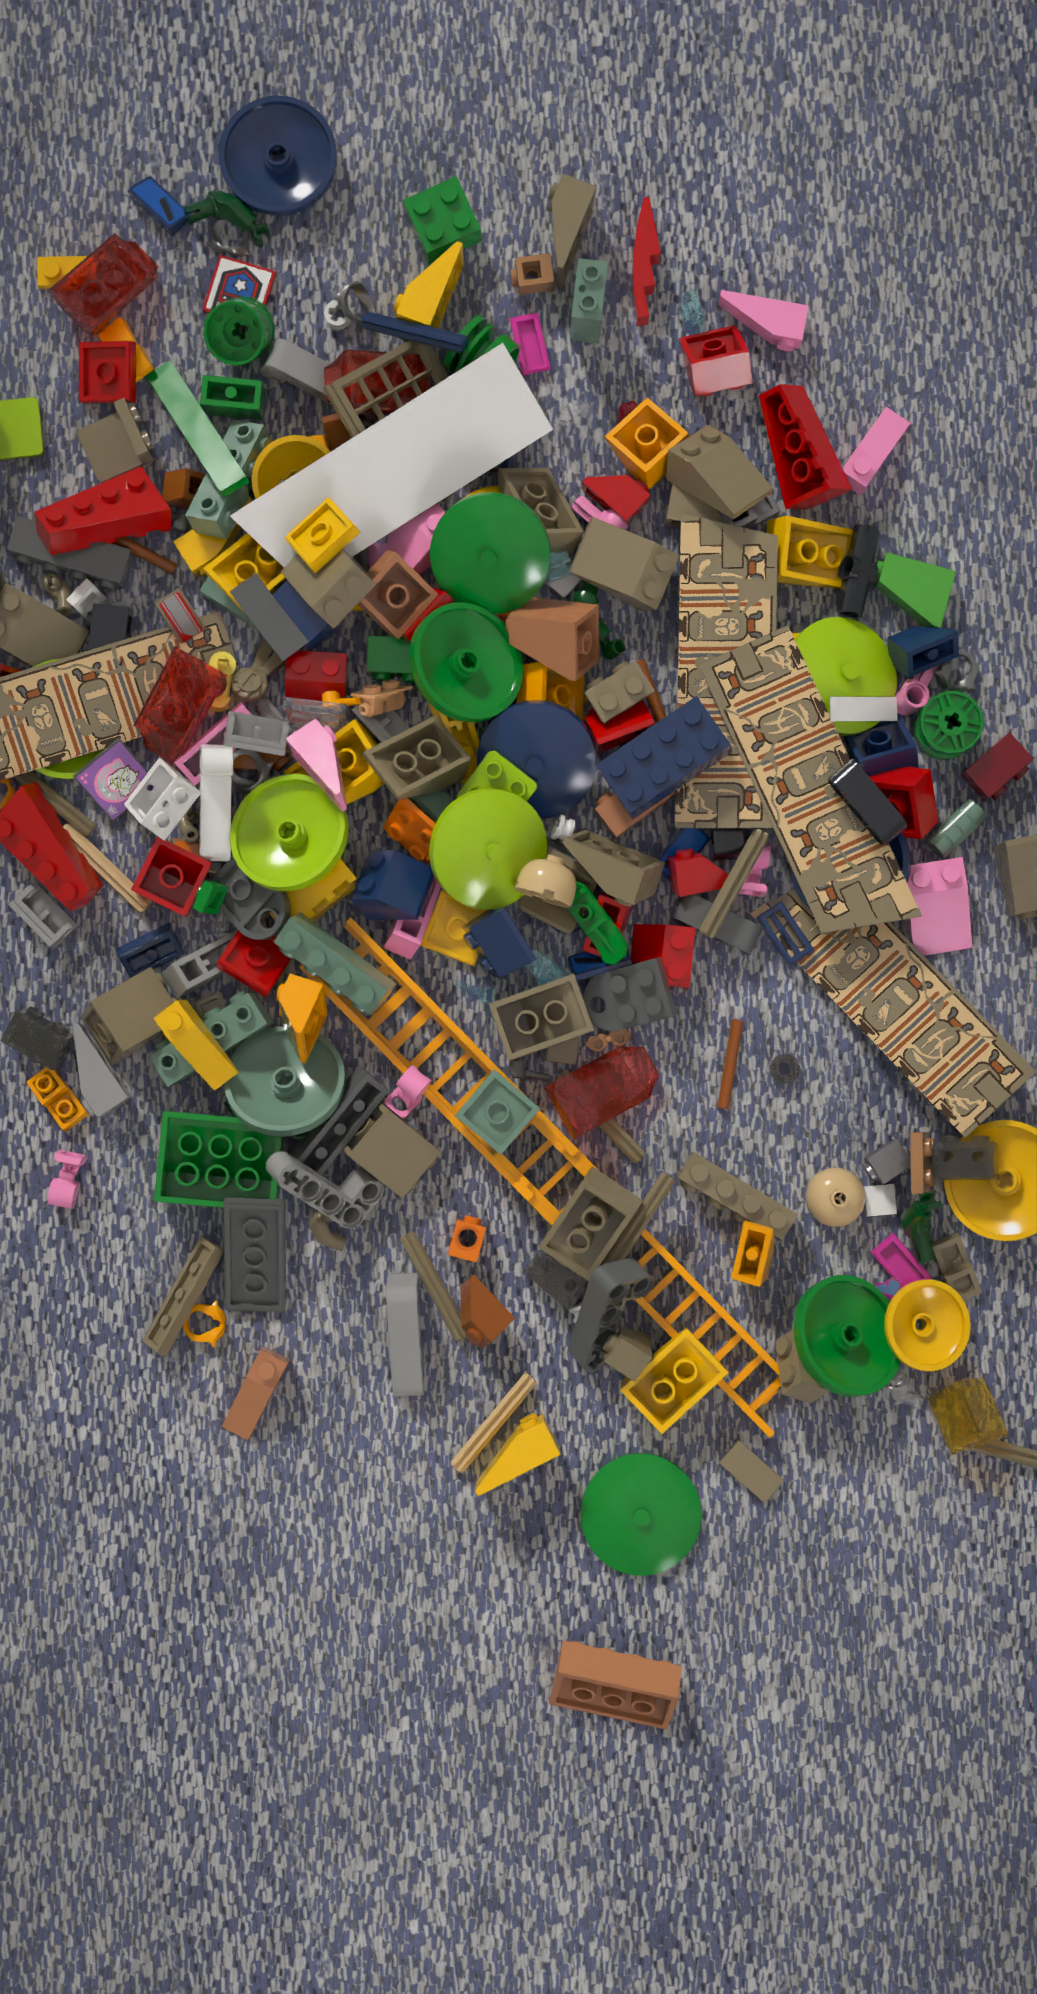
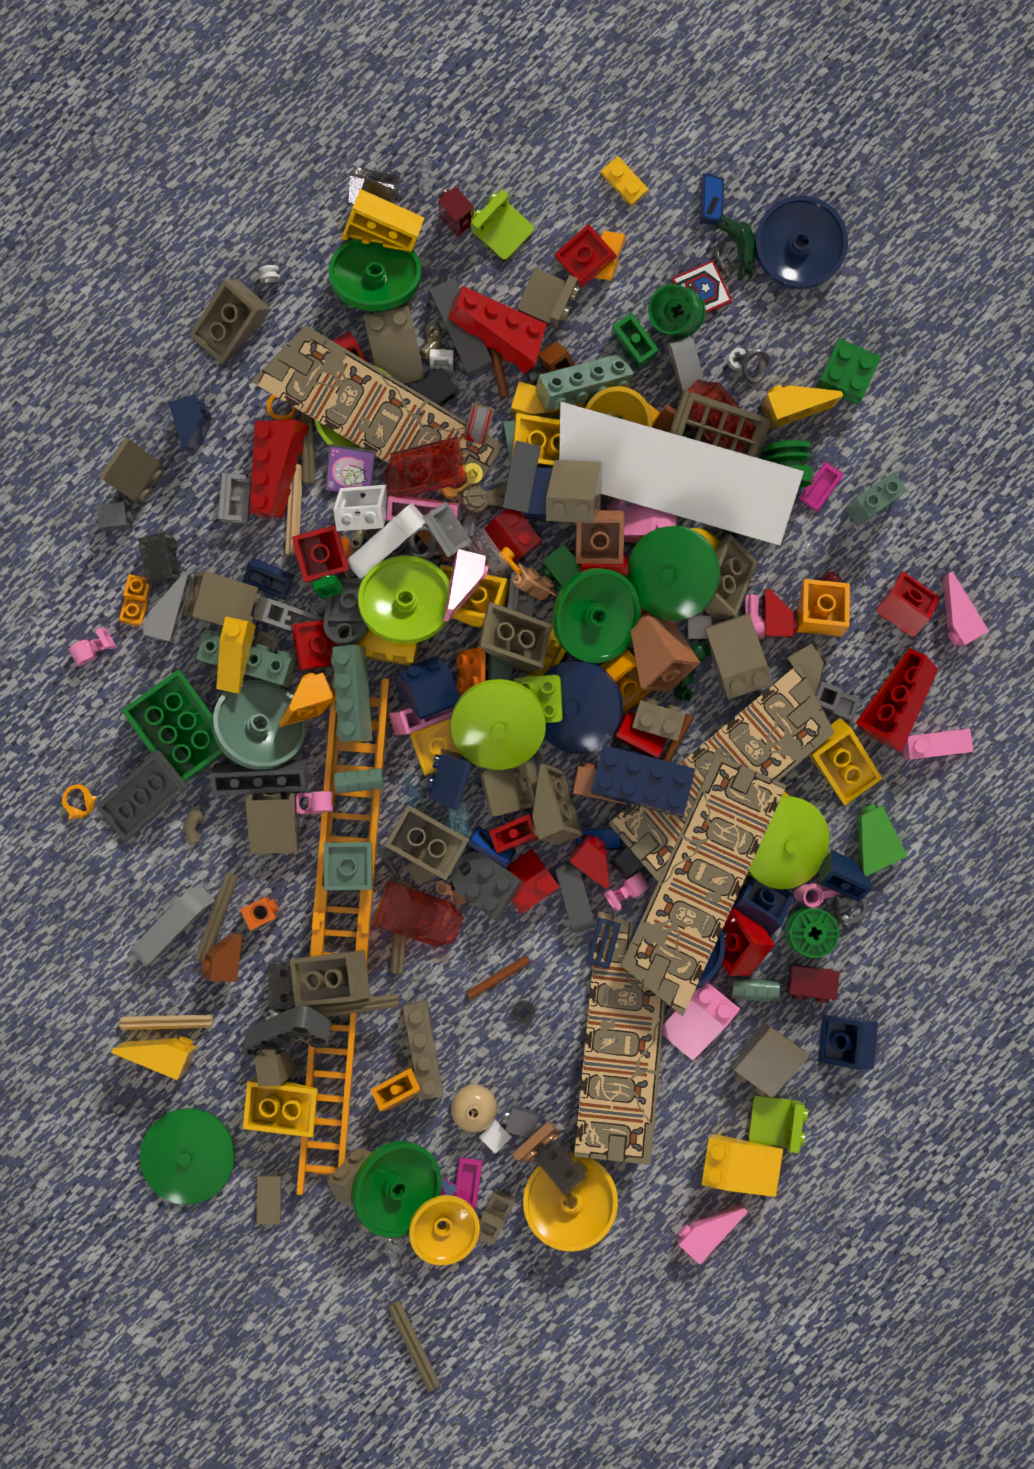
camera: 40 degrees right, 0 degrees up
(104, 283) = (636, 208): clear red slope -> none
(183, 1296) = (82, 775): dark tan plate -> none
(197, 429) = (596, 337): tile -> none
(255, 1392) = (63, 867): nougat slope -> none
(322, 535) = (596, 465): yellow tile -> none
(343, 1204) = (216, 822): light grey beam -> none
(414, 332) = (766, 414): dark blue axle -> none
(424, 1030) = (359, 780): none -> sand green axle
(538, 265) = (872, 452): medium nougat brick -> none
(548, 881) = (509, 776): tan cylinder -> none
(559, 566) = (702, 619): clear light blue plate -> none
(562, 828) = (550, 756): white bush -> none
(571, 210) = (920, 442): dark tan slope -> none
(598, 926) = (510, 828): green piece -> none
(615, 1684) = (74, 1229): nougat slope -> none
(645, 254) = (935, 508): red slope -> none
(691, 309) = (925, 563): clear light blue plate -> none
(716, 472) = (840, 664): dark tan slope -> none
(734, 883) = (605, 887): dark tan axle -> none
(858, 571) = (856, 798): black piece -> none
(863, 708) = (776, 873): white sticker -> none
(867, 802) = (721, 925): black beam -> none
(917, 1225) = (498, 1172): dark green arm -> none
(967, 1415) = (412, 1300): clear yellow slope -> none

